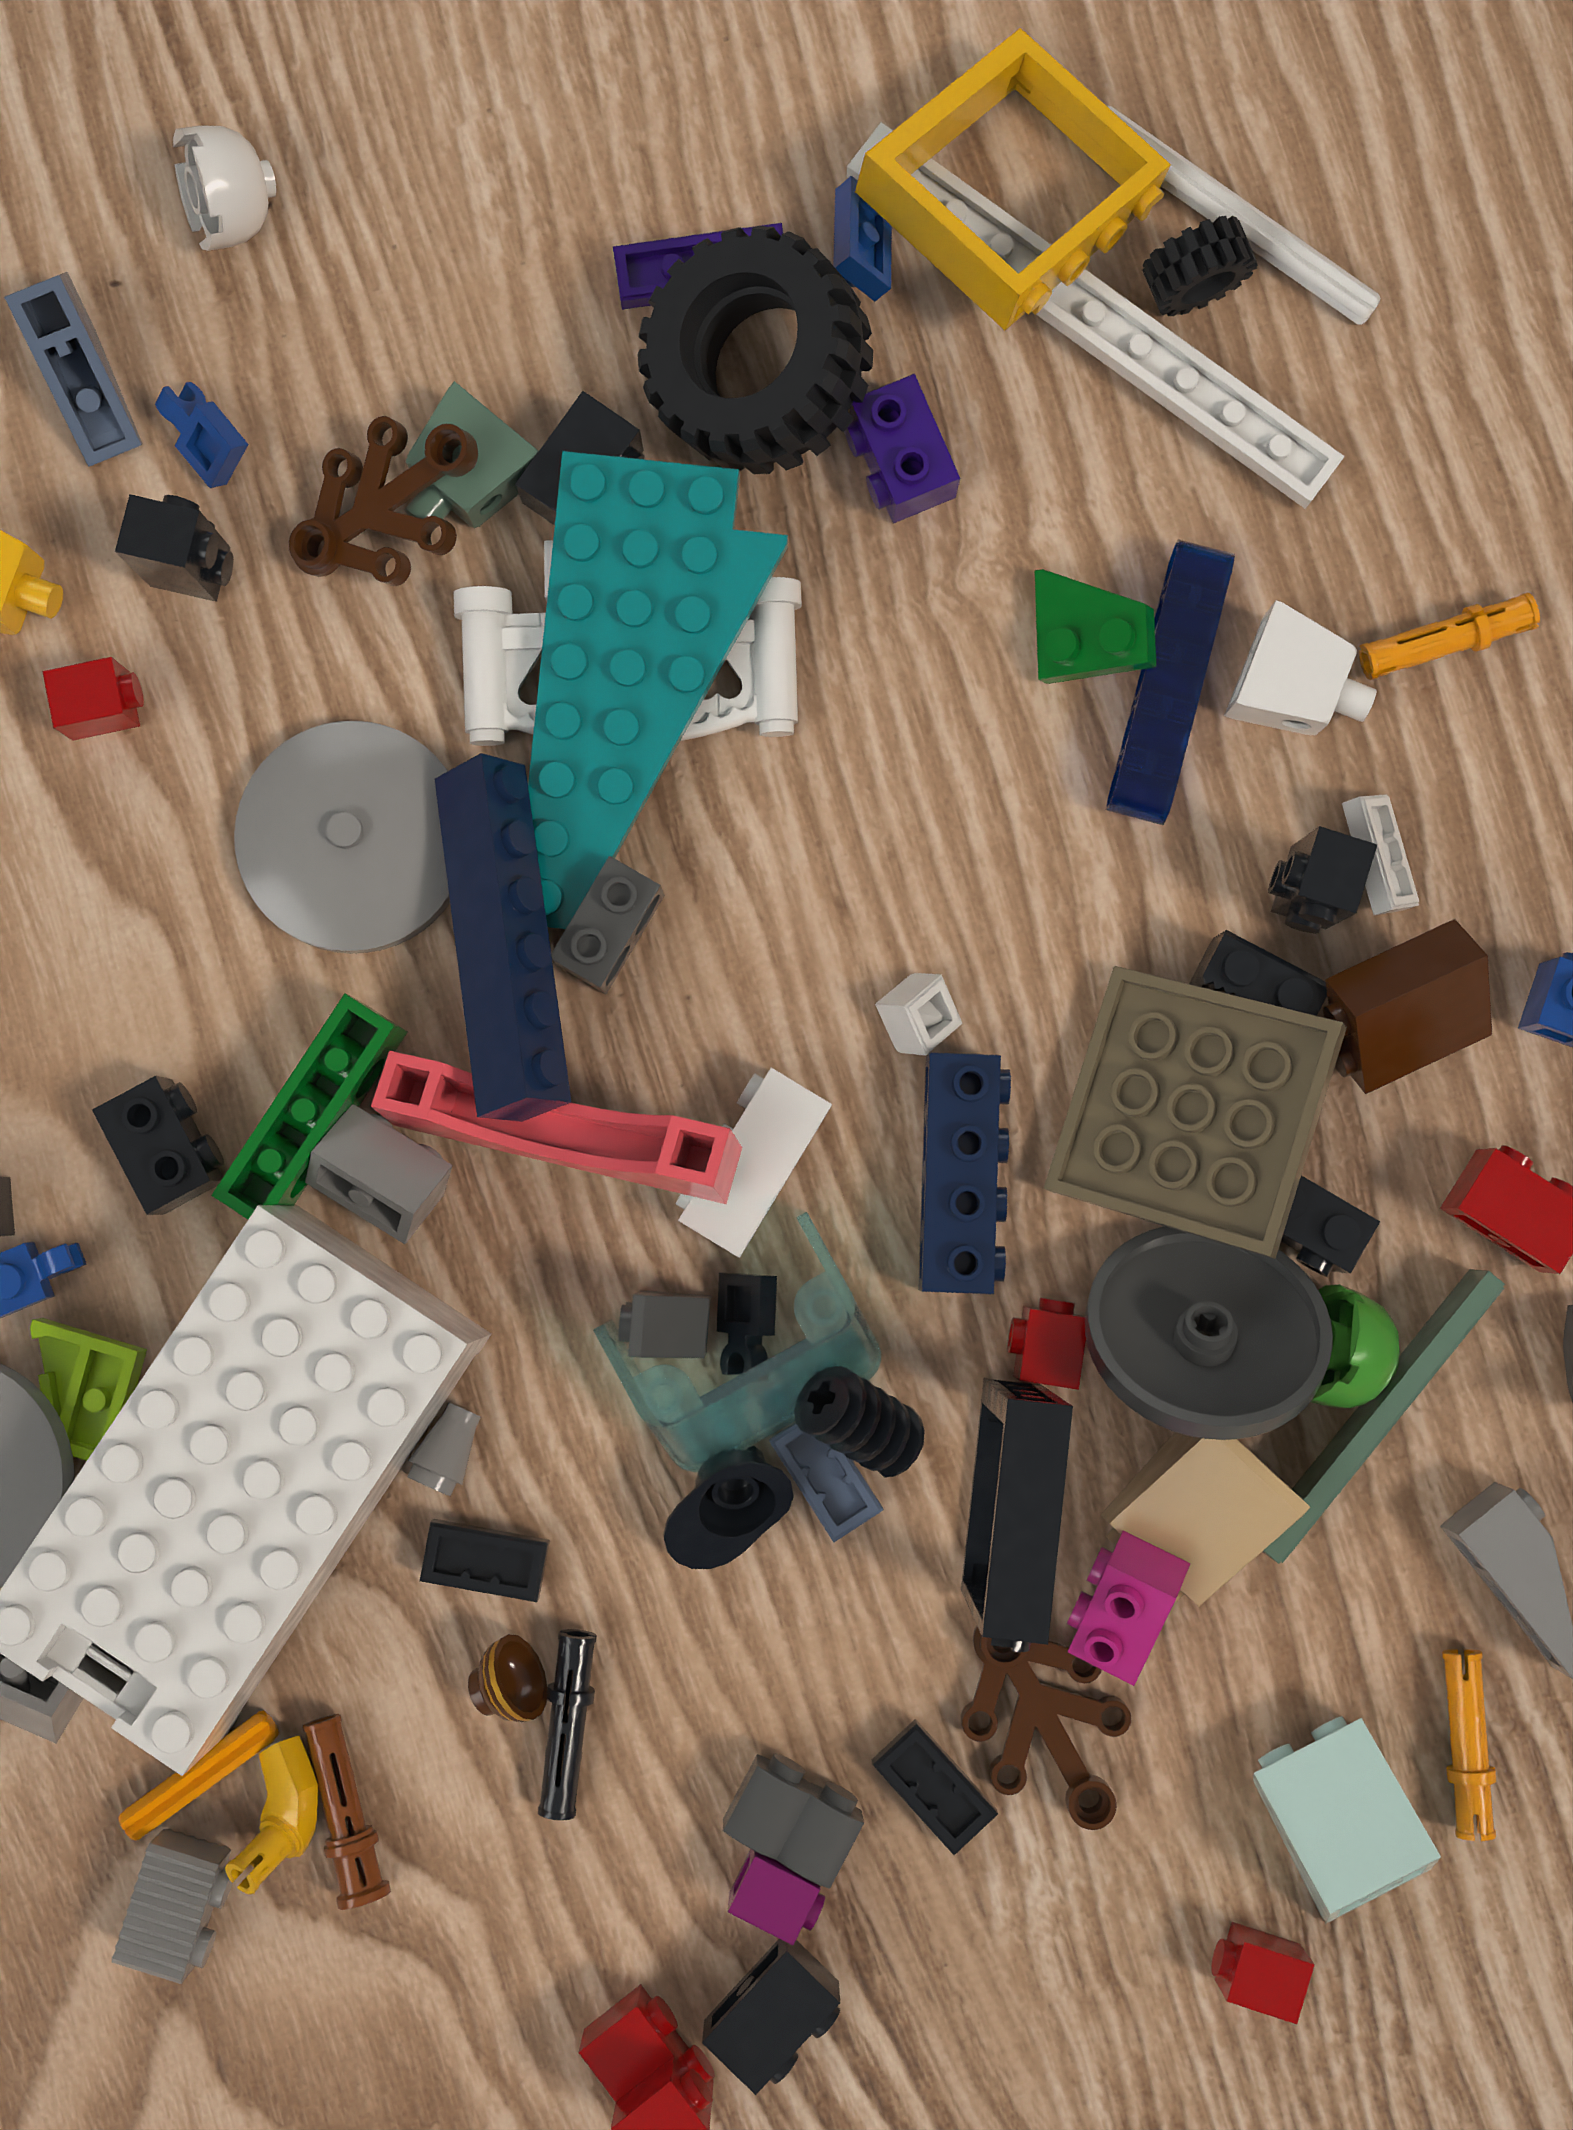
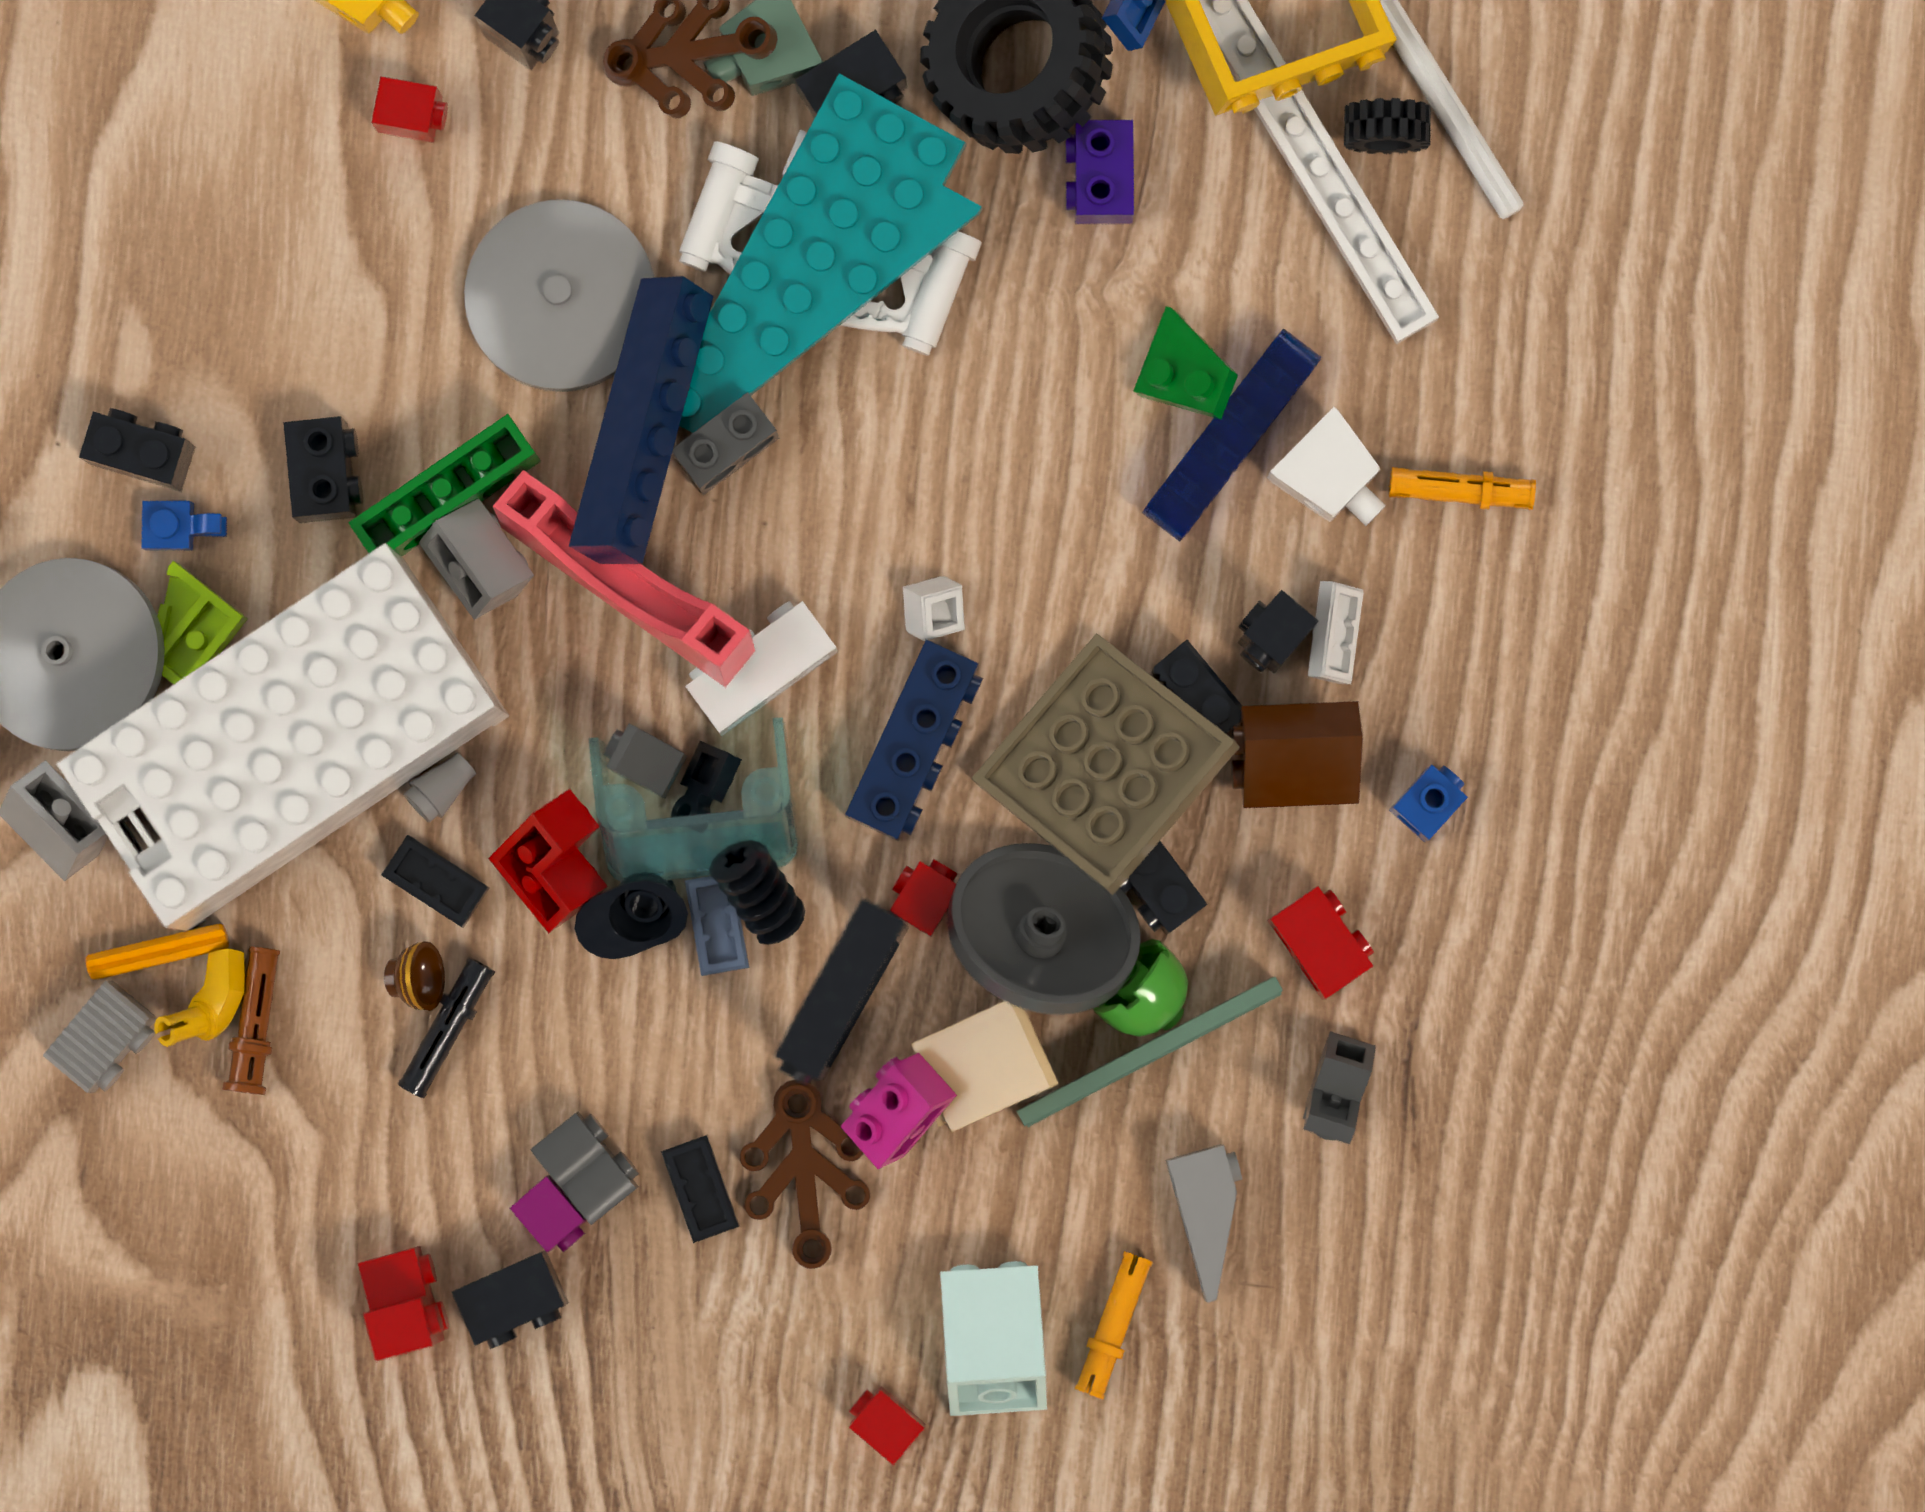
camera: 25 degrees right, 0 degrees up
(607, 1492) = (545, 862): none -> red brick

